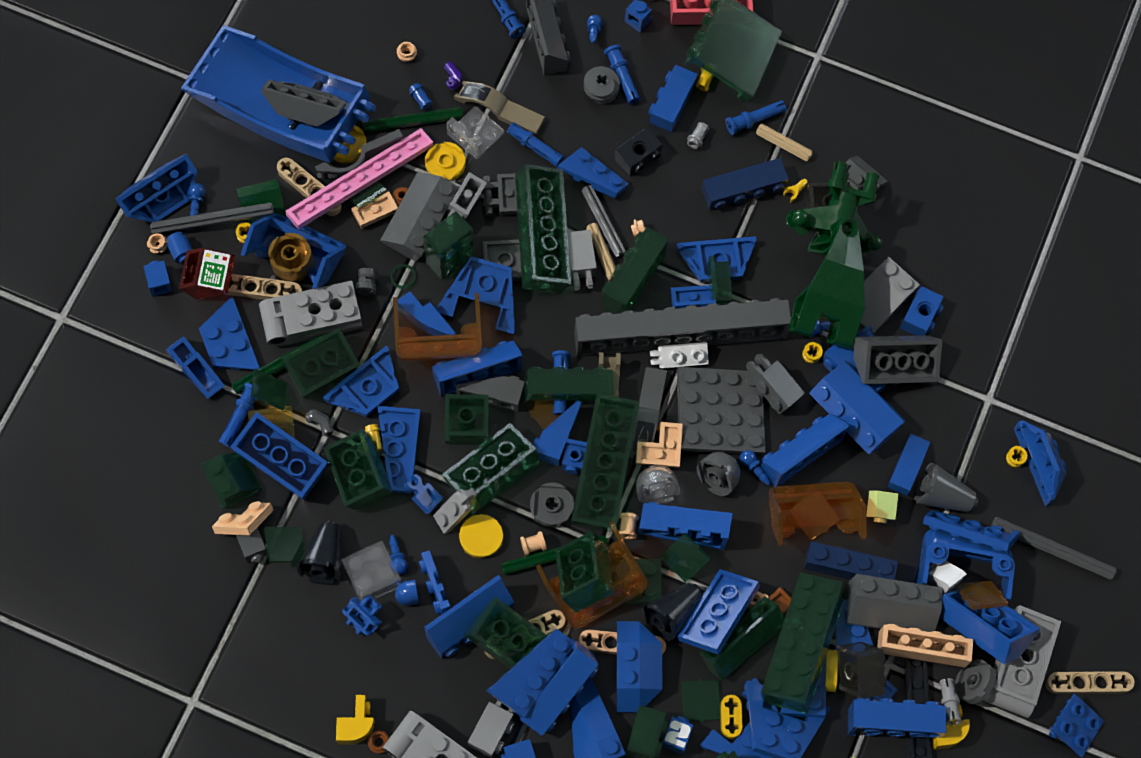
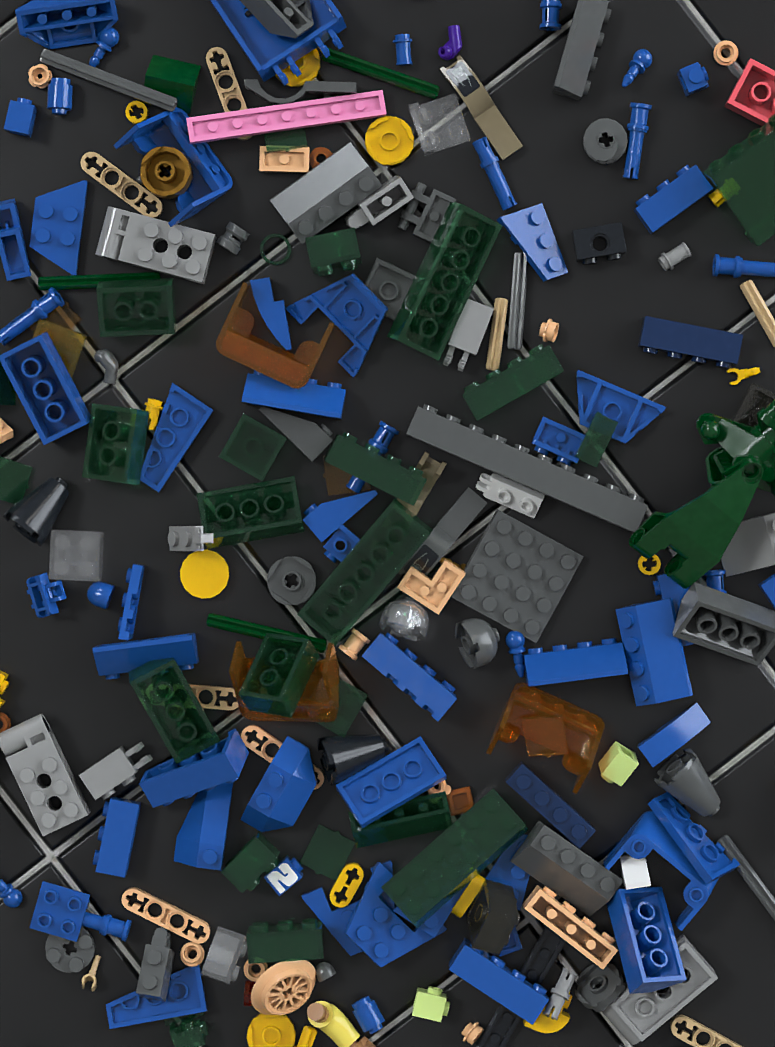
camera: 35 degrees right, 20 degrees up
(206, 273) = (71, 143): slope -> none
(268, 389) = (70, 308): clear green piece -> none
(367, 386) = (174, 356): blue wing -> none
(397, 557) = (108, 557): blue bar -> none
(425, 495) = (171, 503): blue plate -> none
(527, 679) = (163, 752): blue wing -> none
(533, 543) = (251, 610): light nougat bush -> none
(685, 557) = (390, 709): clear green piece -> none
(774, 383) = (586, 581): dark grey hinge -> none
(981, 595) = (657, 909): clear orange piece -> none

